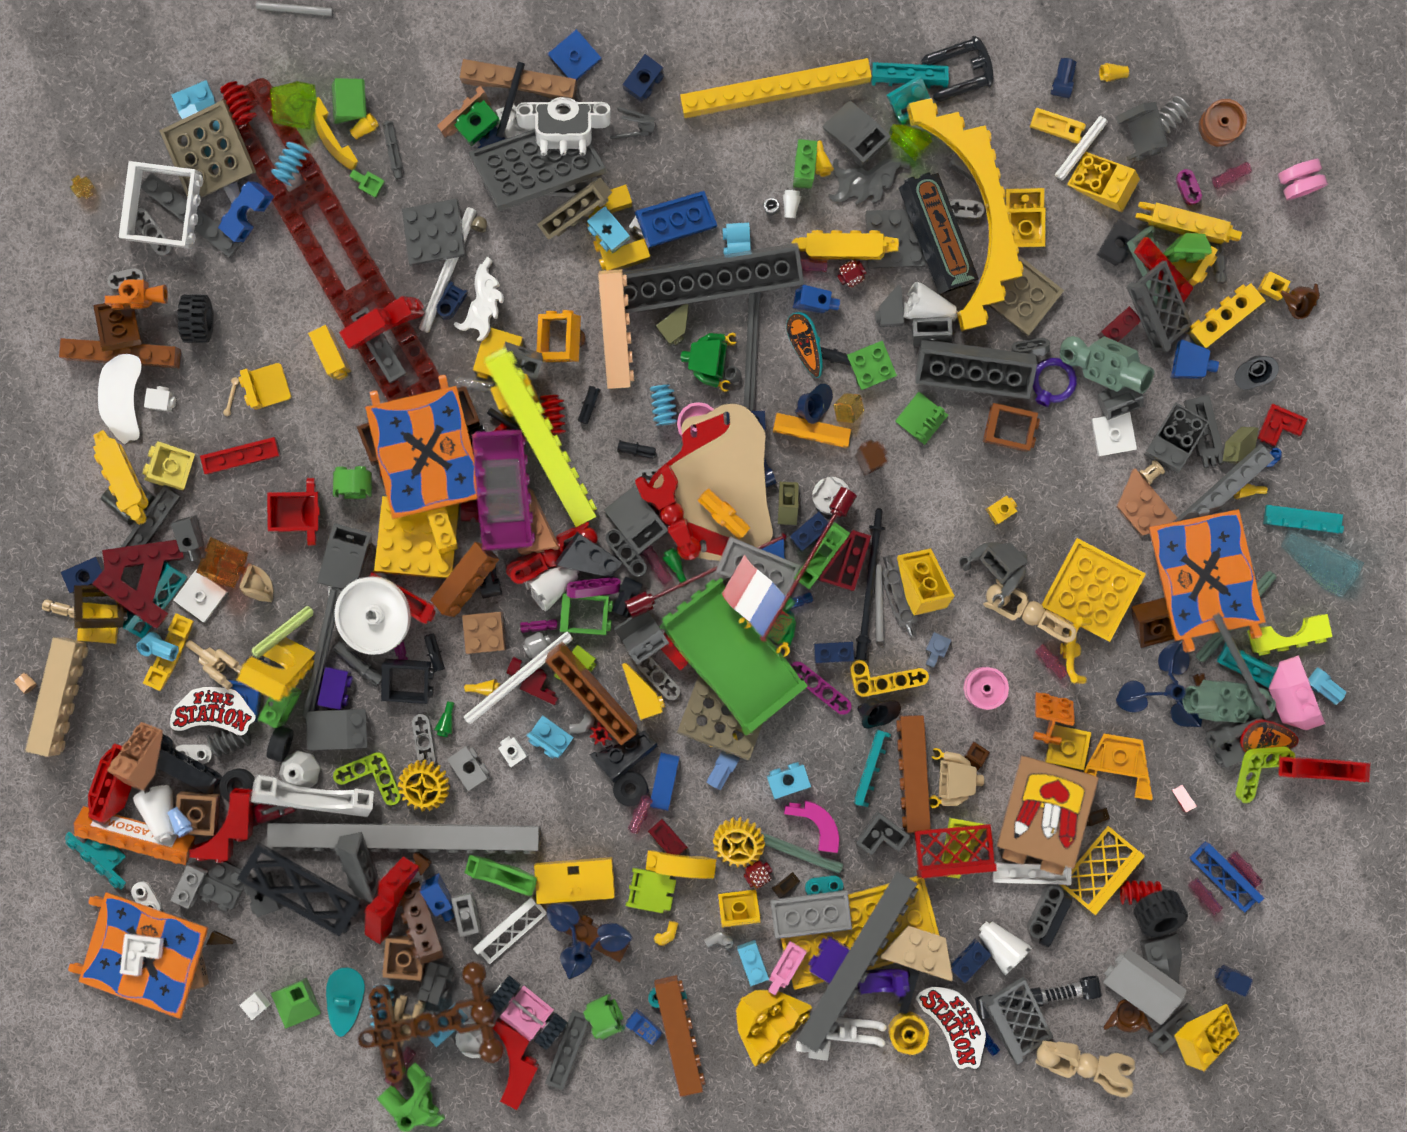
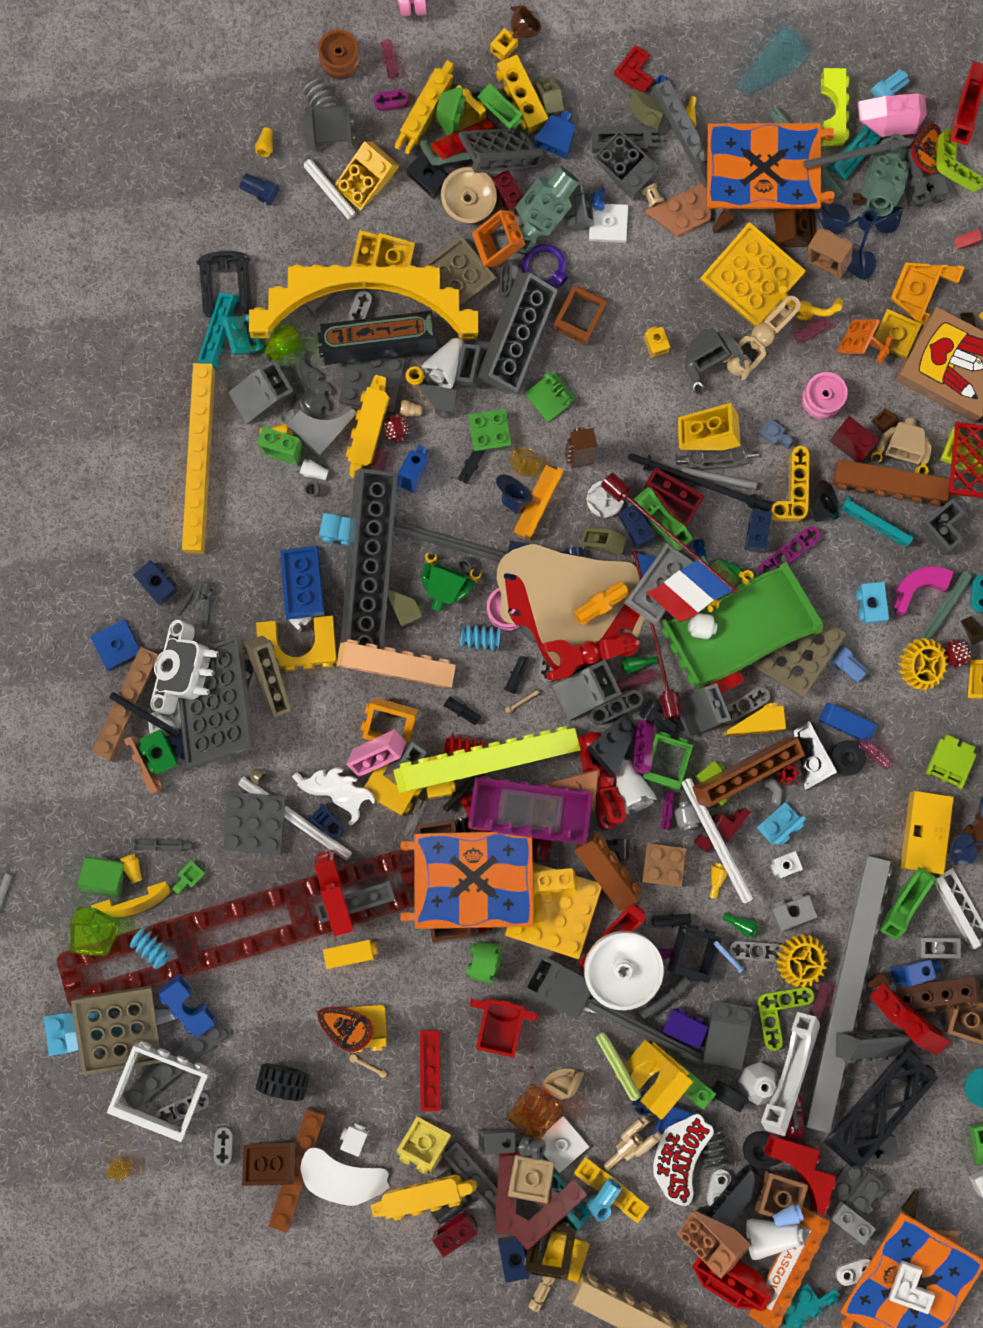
camera: 80 degrees left, 5 degrees down
(98, 517) = (459, 1228): none -> dark red window
(137, 295) = (245, 1135): orange brick -> none
(159, 573) = (531, 1179): none -> tan plate
(188, 567) = (532, 1147): none -> dark grey wheel
(237, 103) = (77, 987): red piece -> none
(259, 365) = (346, 1027): none -> shield
(390, 812) = (820, 1001): none -> clear pink pin
(411, 714) = (728, 956): none -> light blue piece
(525, 331) = (376, 753): none -> bright pink brick
(600, 450) = (508, 710): none -> tan hinge
(605, 219) = (287, 647): medium azure brick -> none
(667, 838) = (904, 733): dark red plate -> none
(680, 865) = (934, 727): yellow arch -> none
(723, 617) = (702, 626): none -> white head
(805, 342) = (452, 487): shield -> none
(829, 196) = (317, 432): none -> light grey arch
(875, 282) = (409, 409): none -> tan piece
(910, 275) = (415, 376): none -> yellow cone
(946, 726) = (854, 439): none -> dark red brick
(1057, 125) = (302, 205): yellow plate -> none
(1067, 313) = (483, 237): none -> orange window
(1110, 273) = (465, 183): none -> tan dish
(1133, 661) = (830, 252): none -> medium nougat brick
(1135, 416) = (597, 203): none -> blue arm
(1142, 548) = (724, 220): none -> reddish brown slope
(1201, 300) = (500, 107): none -> bright green arch
(1232, 344) = (549, 95): none -> olive slope
(1256, 372) = (581, 78): black piece -> none
(1303, 519) = (728, 70): teal hinge -> none

